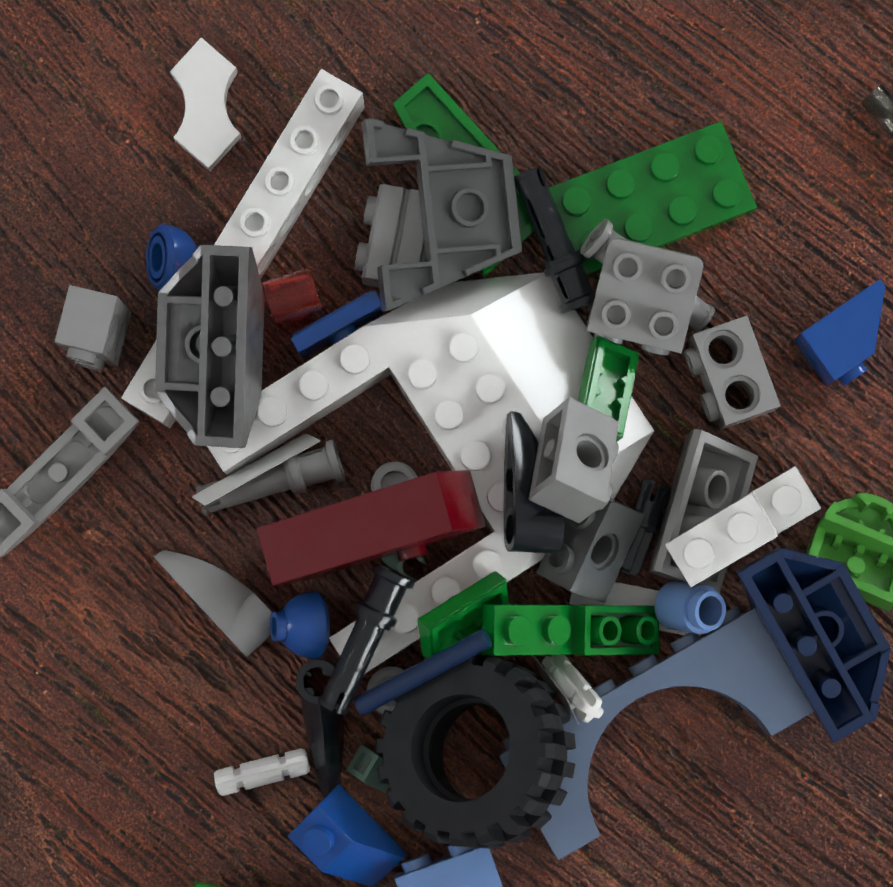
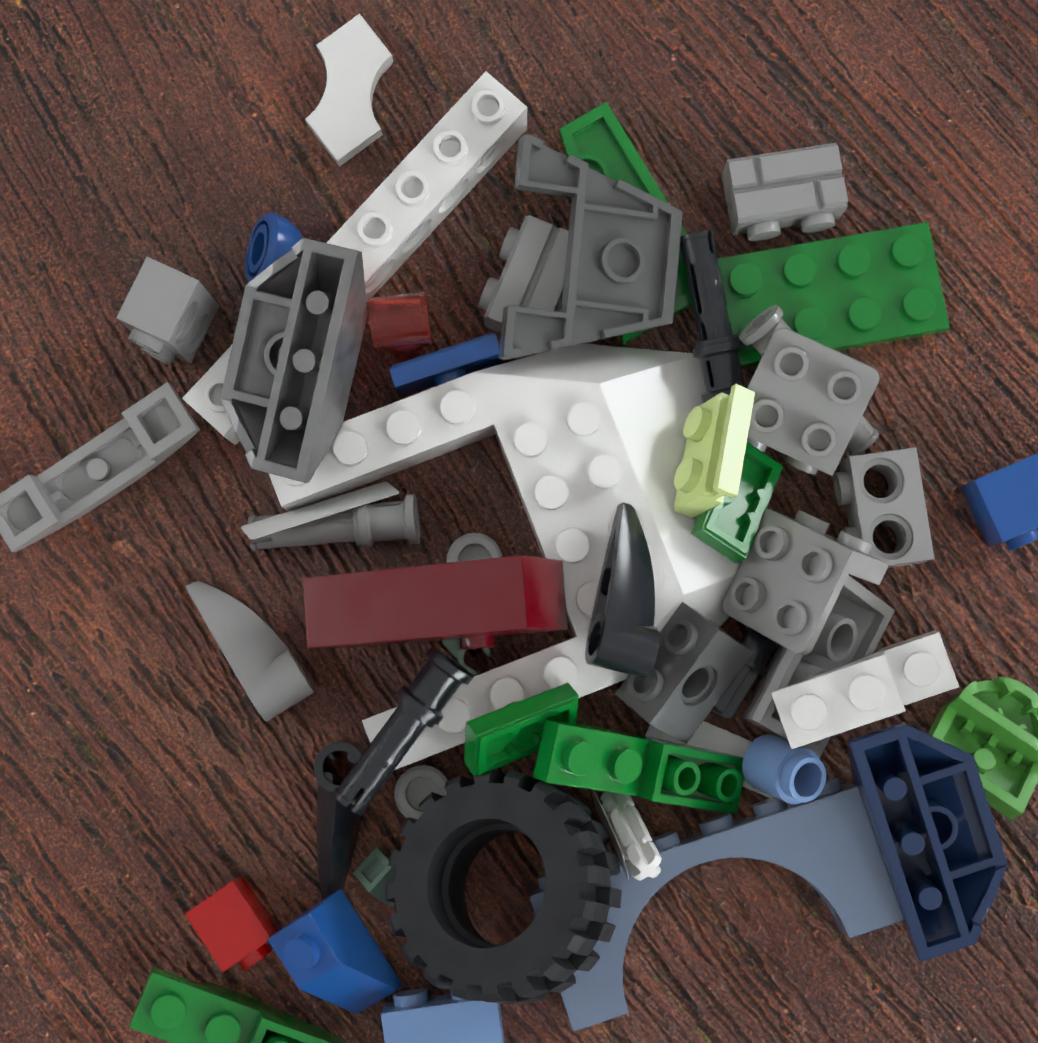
camera: 15 degrees right, 0 degrees up
(255, 833) = (233, 925): none -> red brick
(261, 772) = (256, 856): white axle -> none
(303, 625) = (336, 699): blue brick -> none
(423, 672) = (460, 784): dark blue bar -> none
(574, 460) = (685, 575): light grey brick -> none
(578, 351) = (713, 451): none -> yellowish green plate
(594, 119) = (785, 191): none -> light grey brick
(667, 444) = (796, 577): none -> light grey bracket

